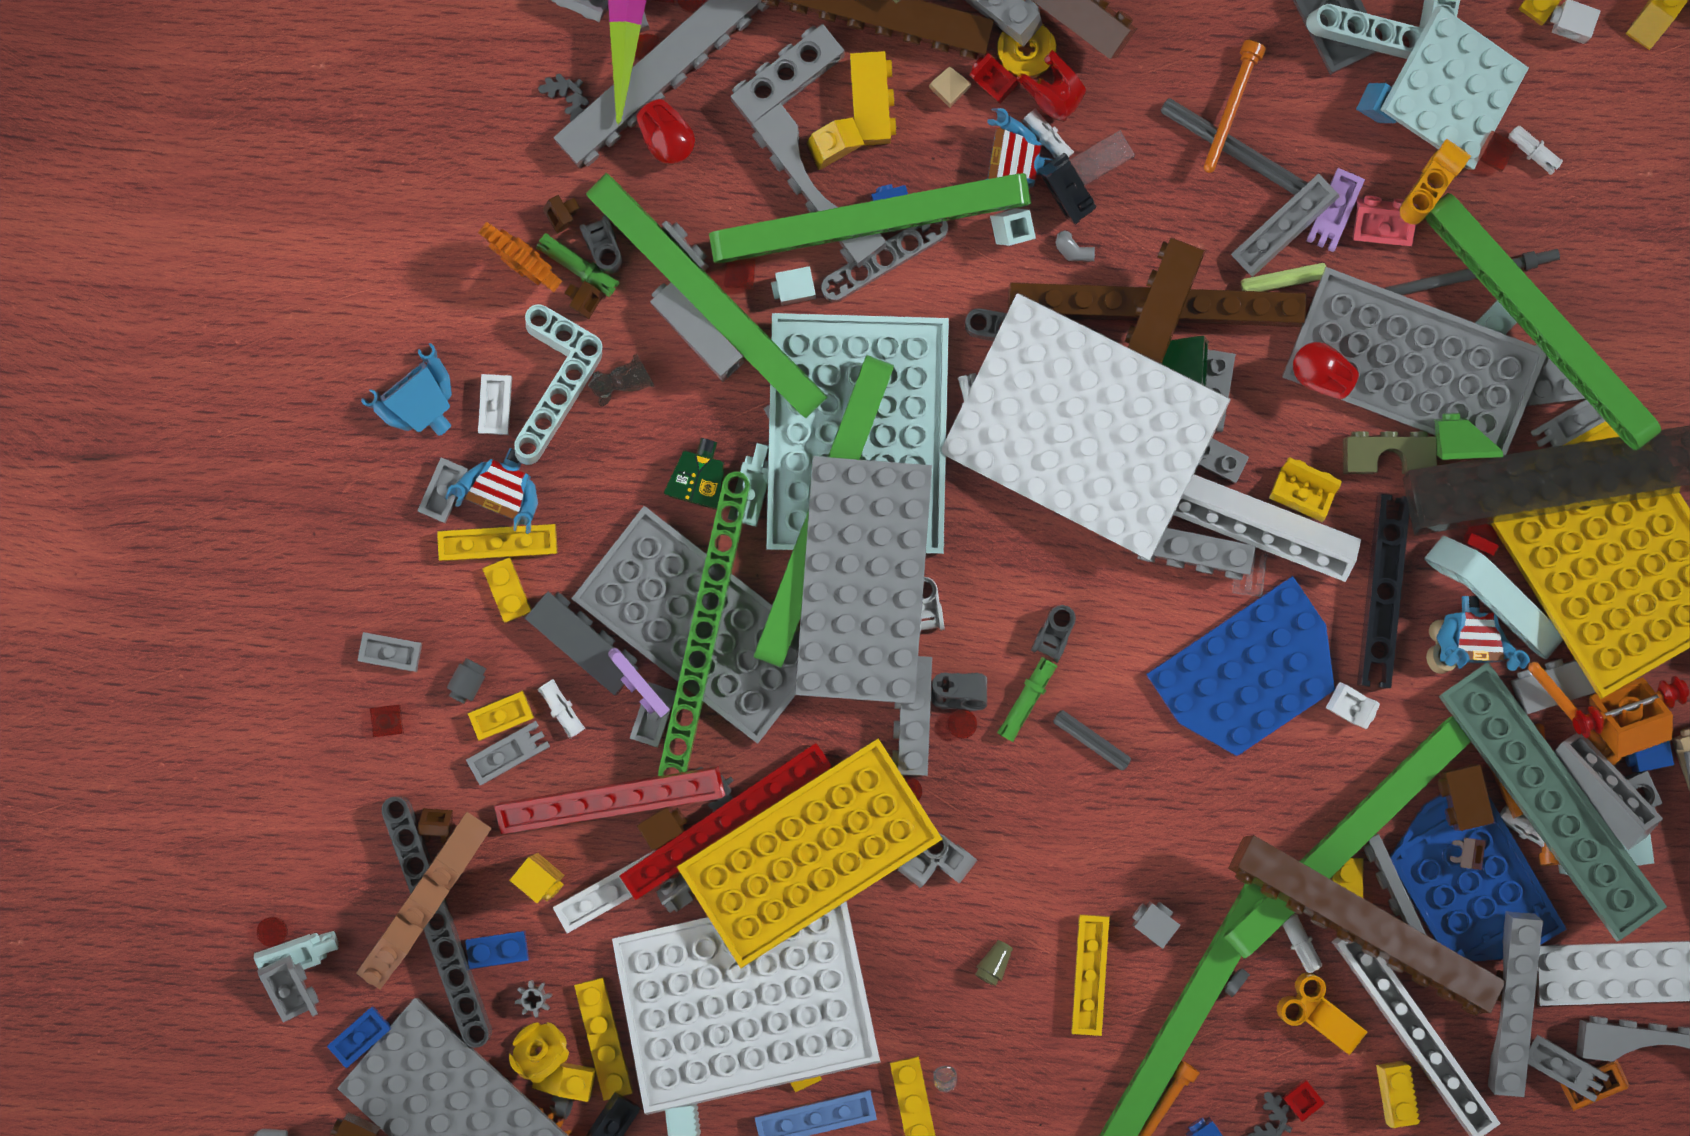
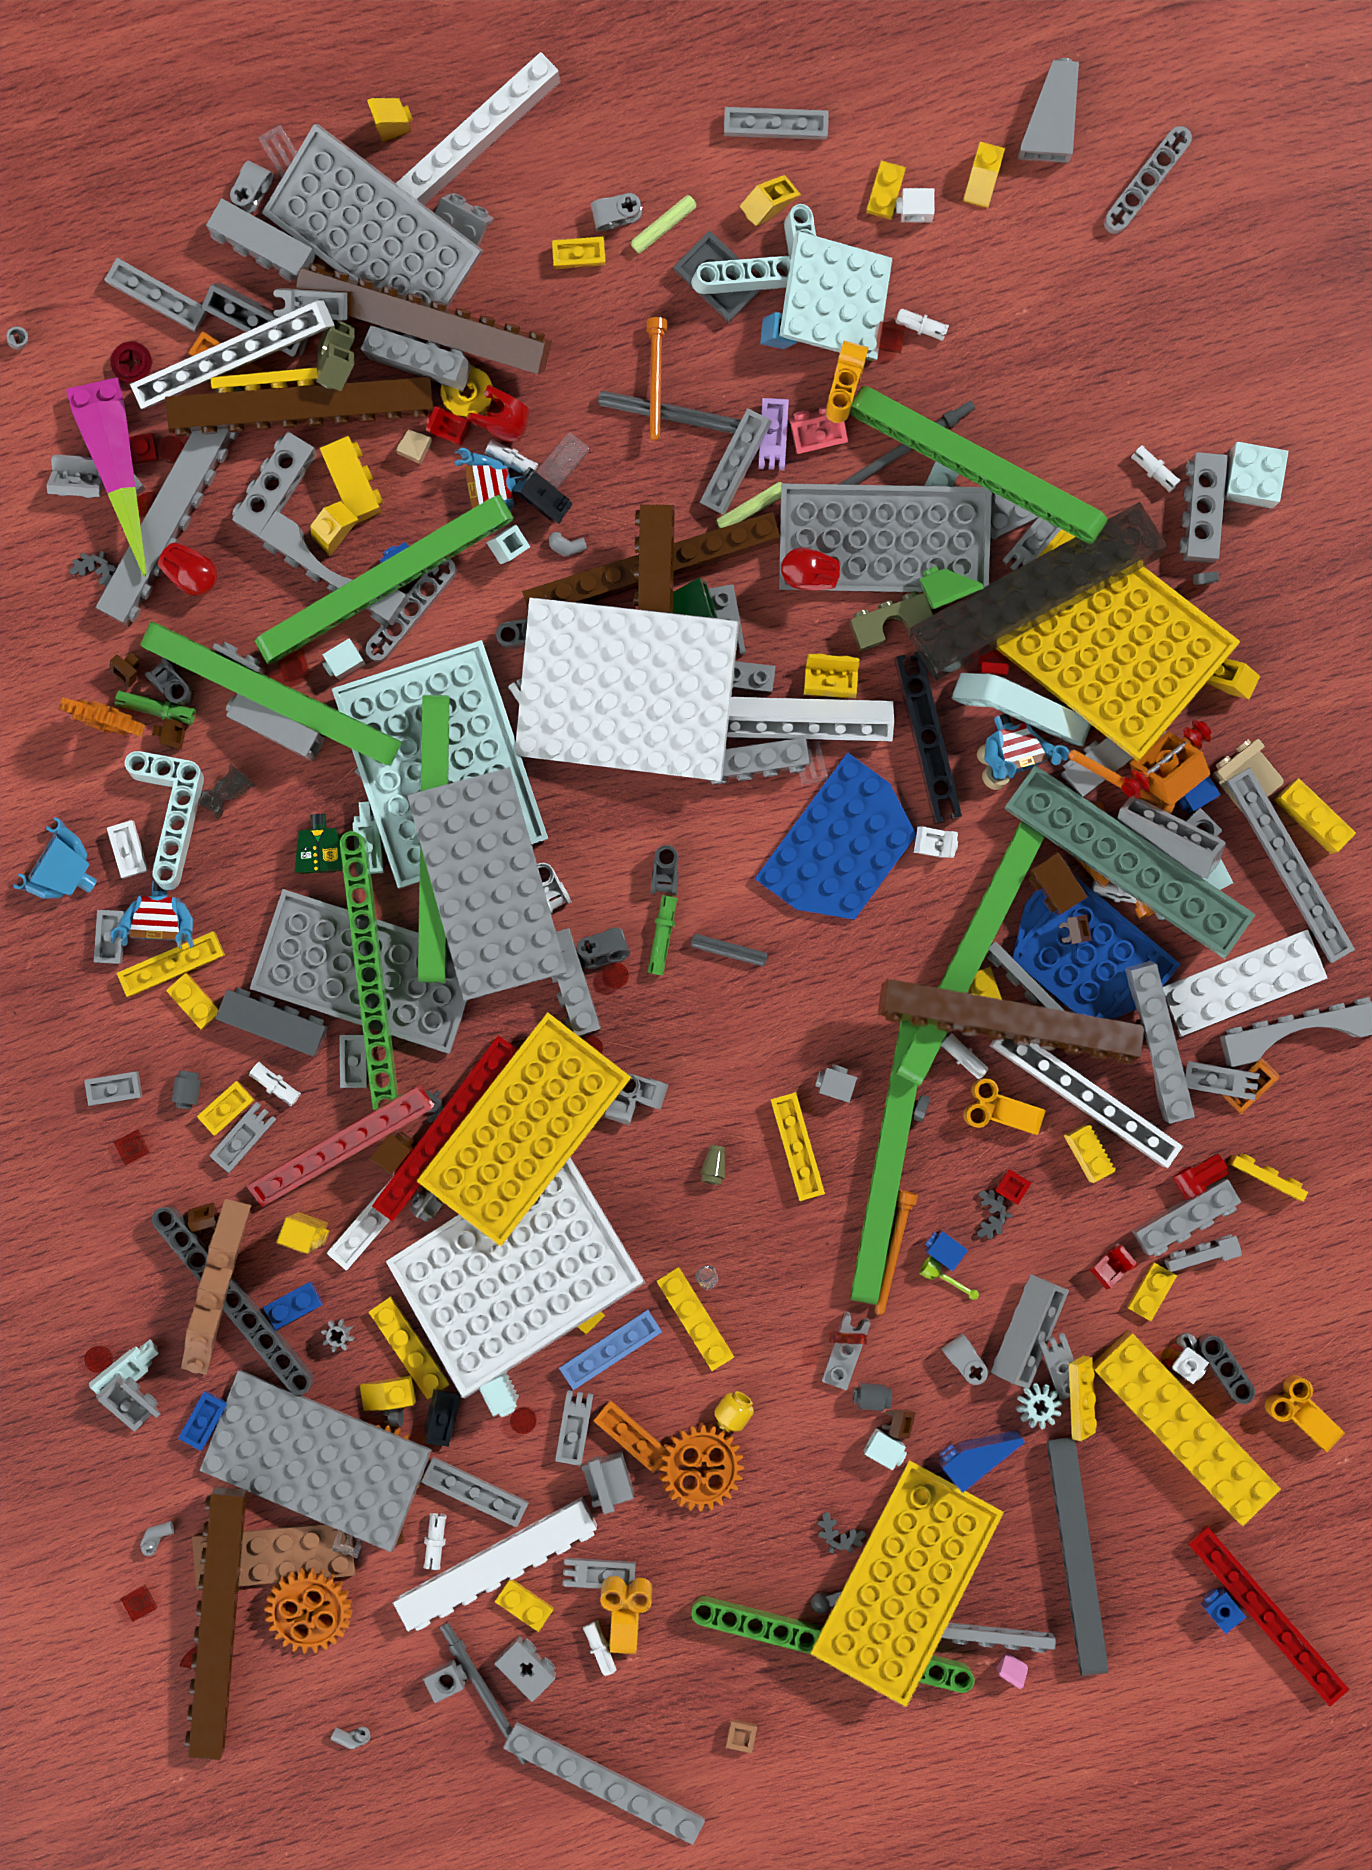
camera: 20 degrees left, 0 degrees up
(547, 1061) = (360, 1390): yellow plate -> none
(634, 681) = (326, 1038): lavender hinge -> none

